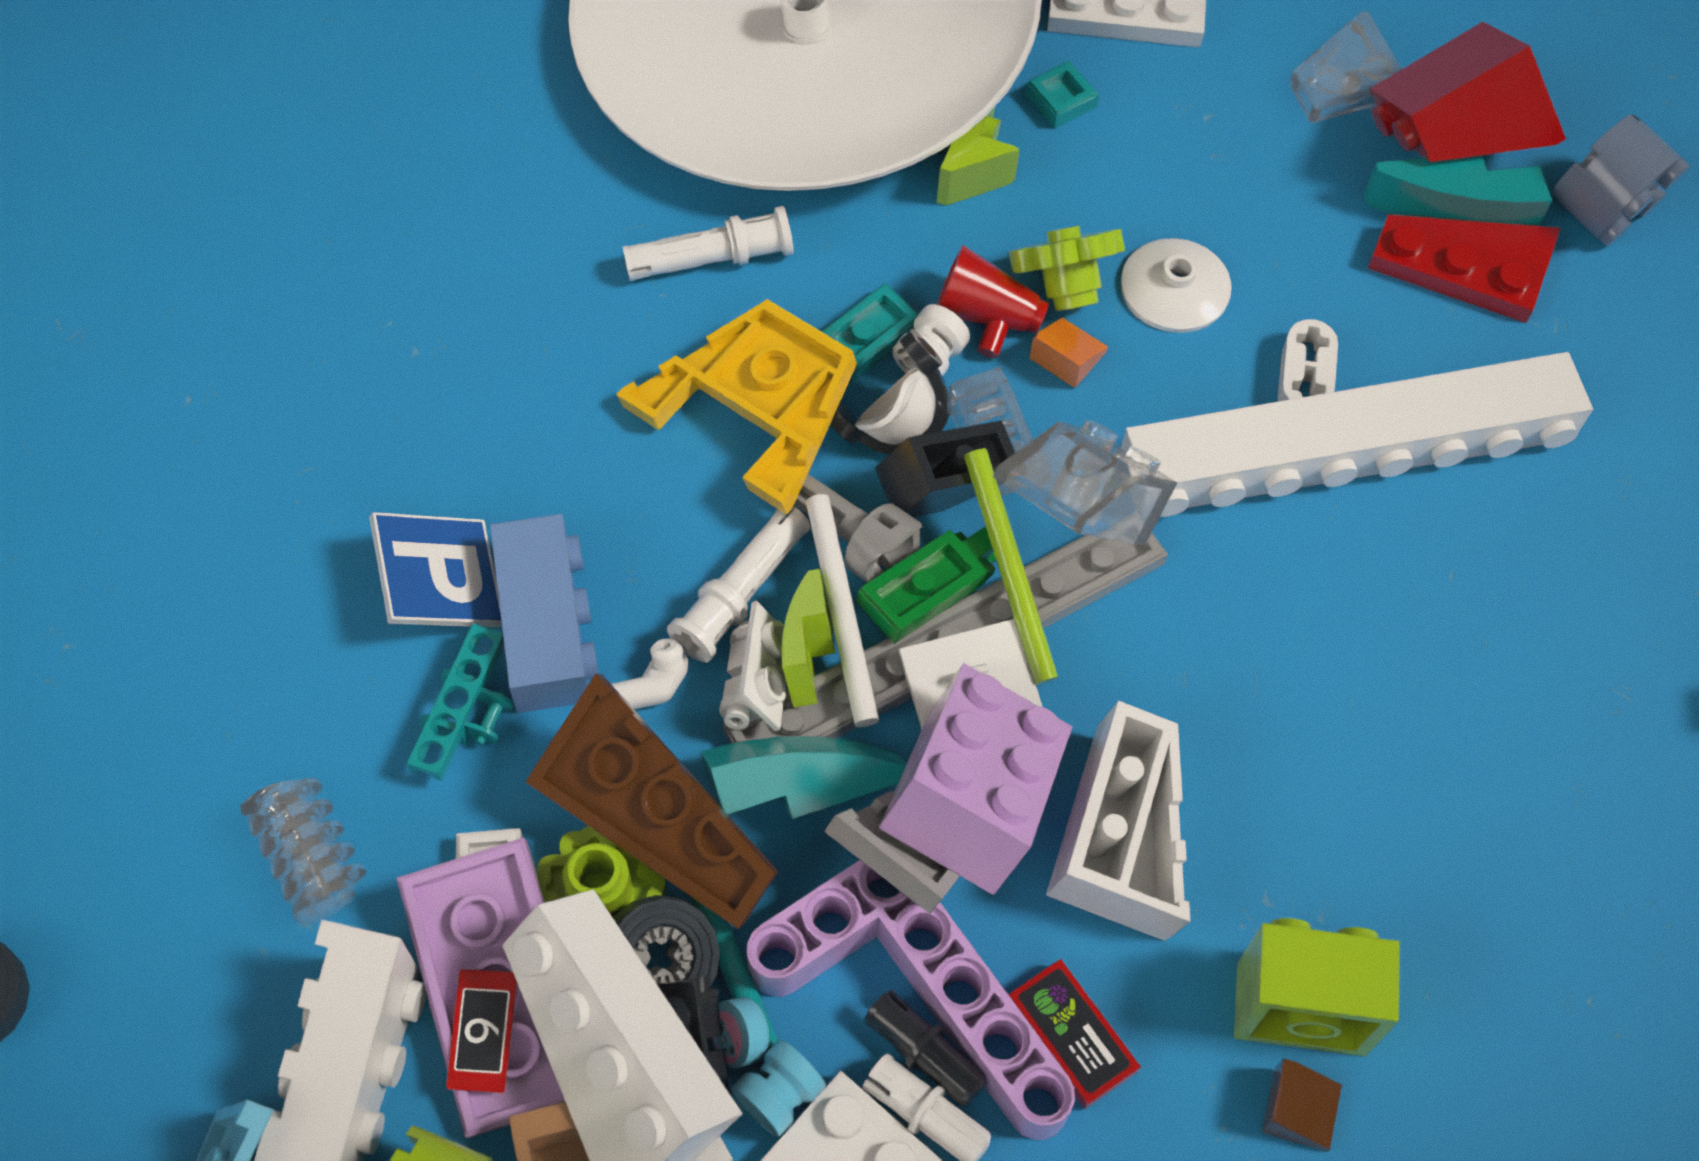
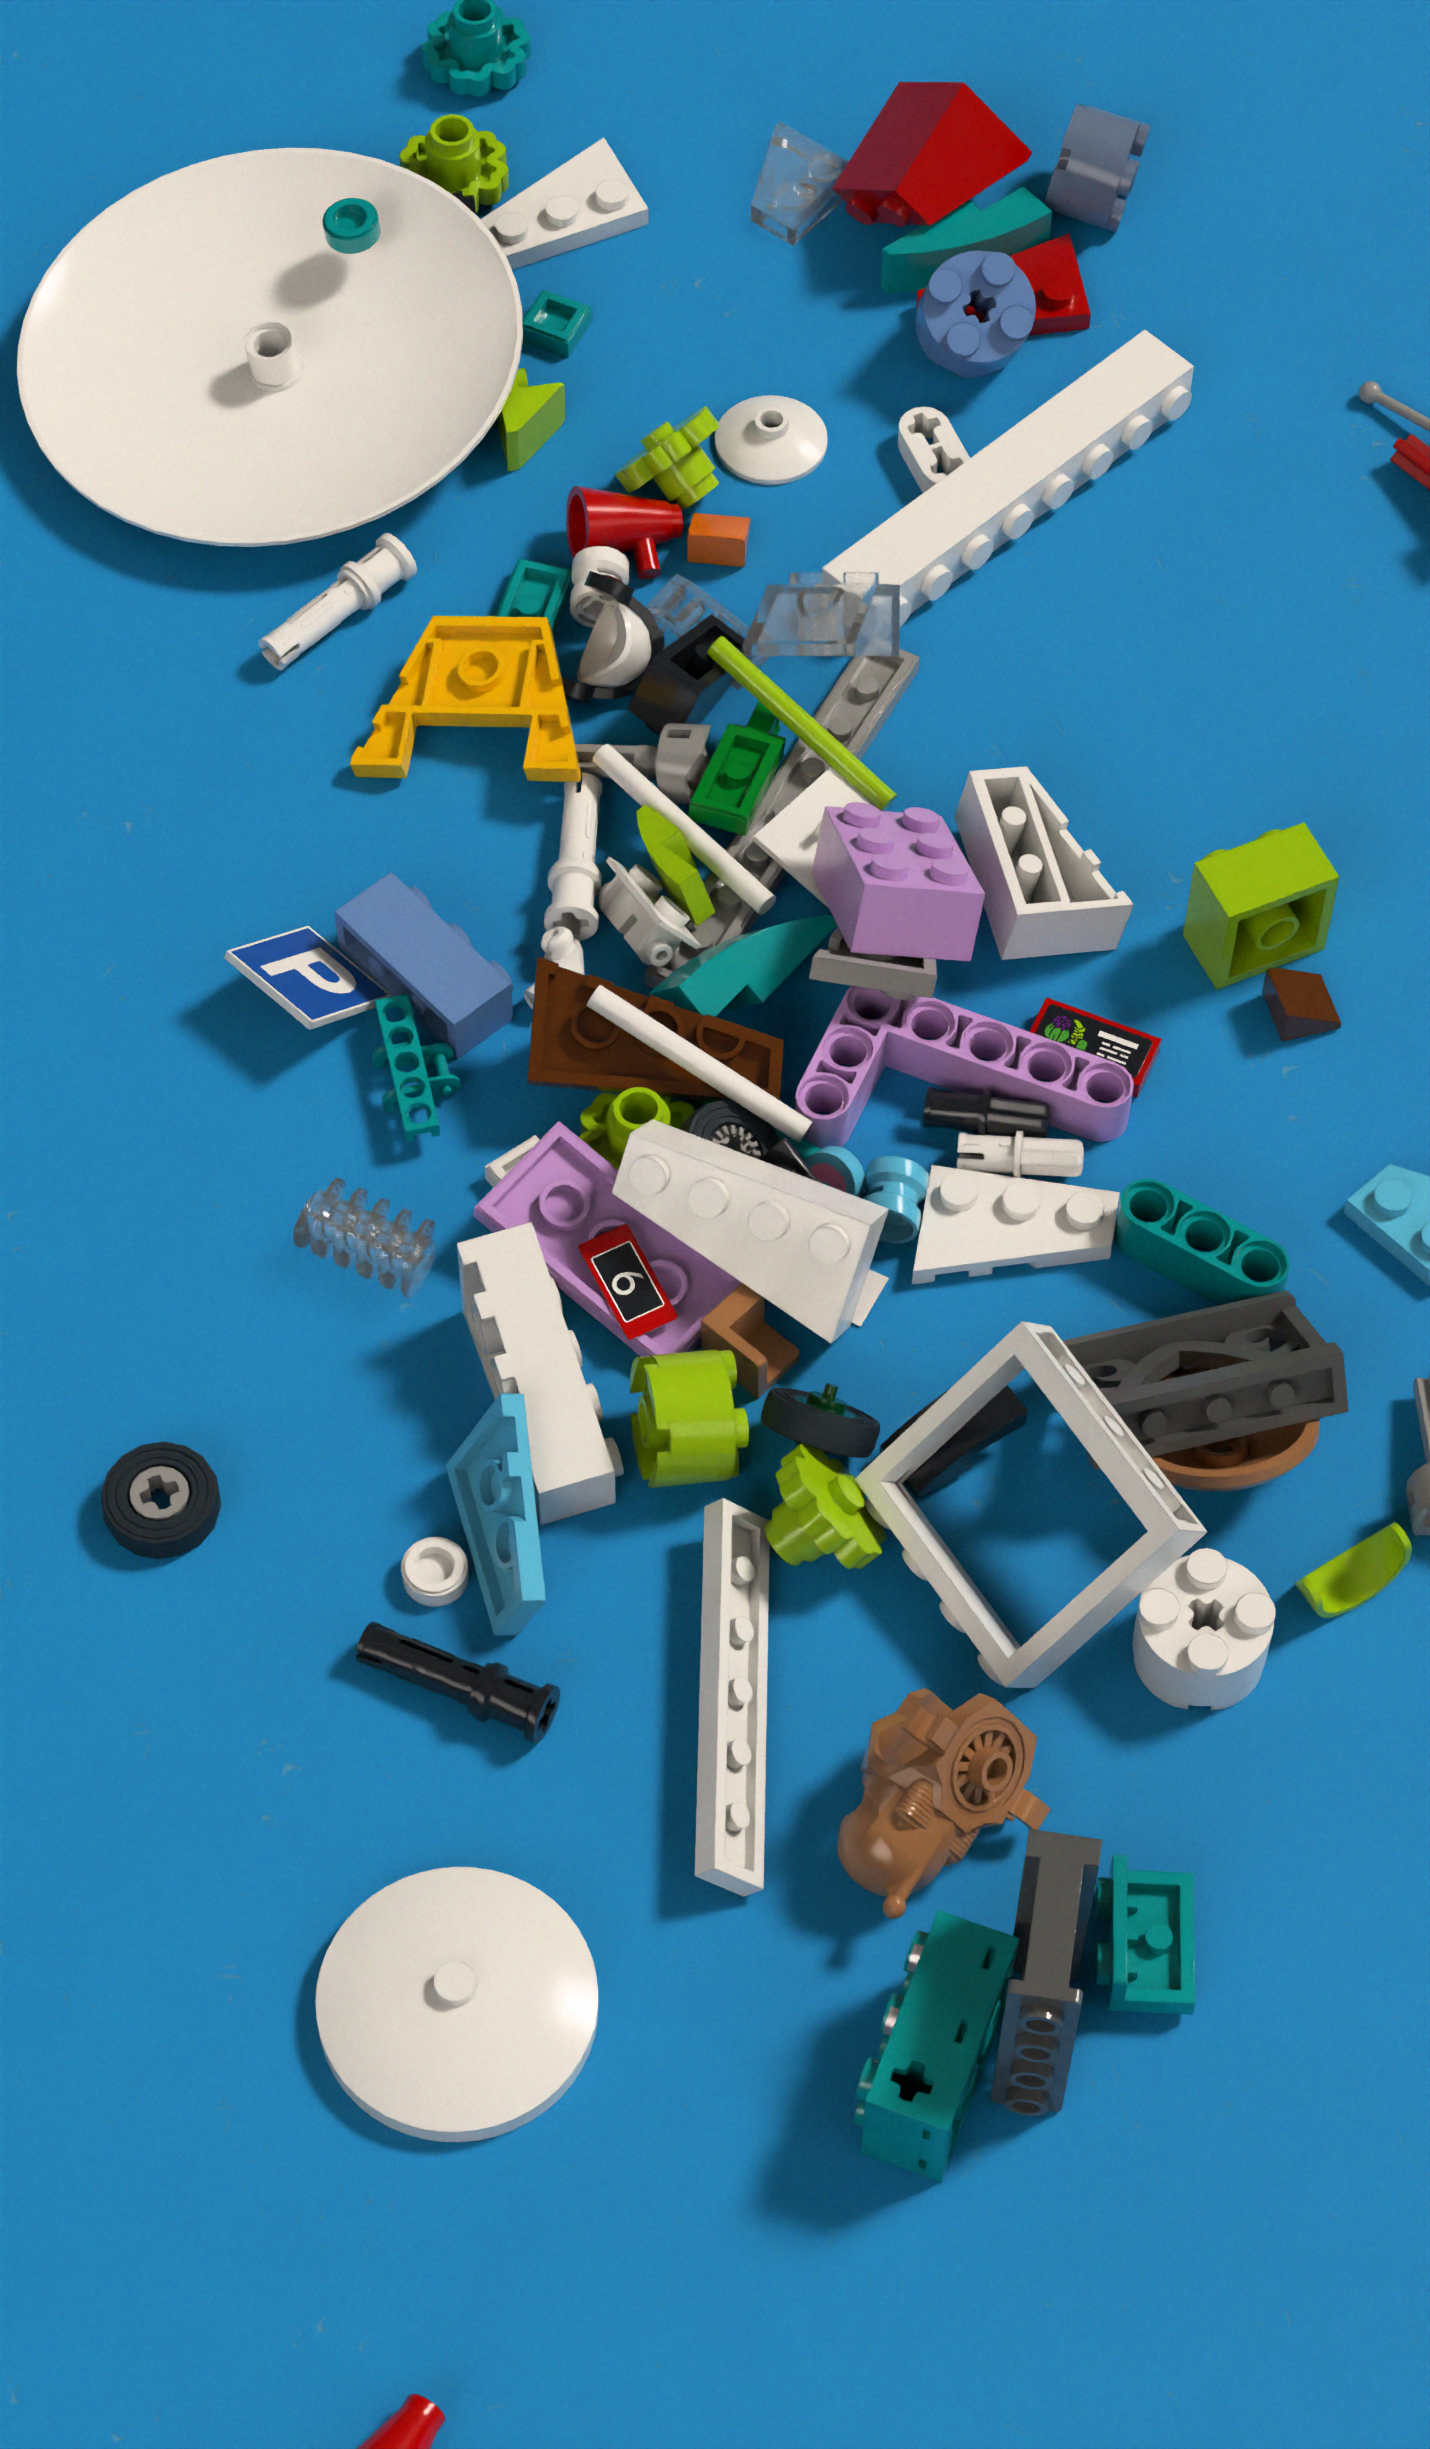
camera: 30 degrees left, 5 degrees down
(680, 855) = (699, 1063): none -> white bar
(1448, 242) = (990, 285): none -> medium blue brick

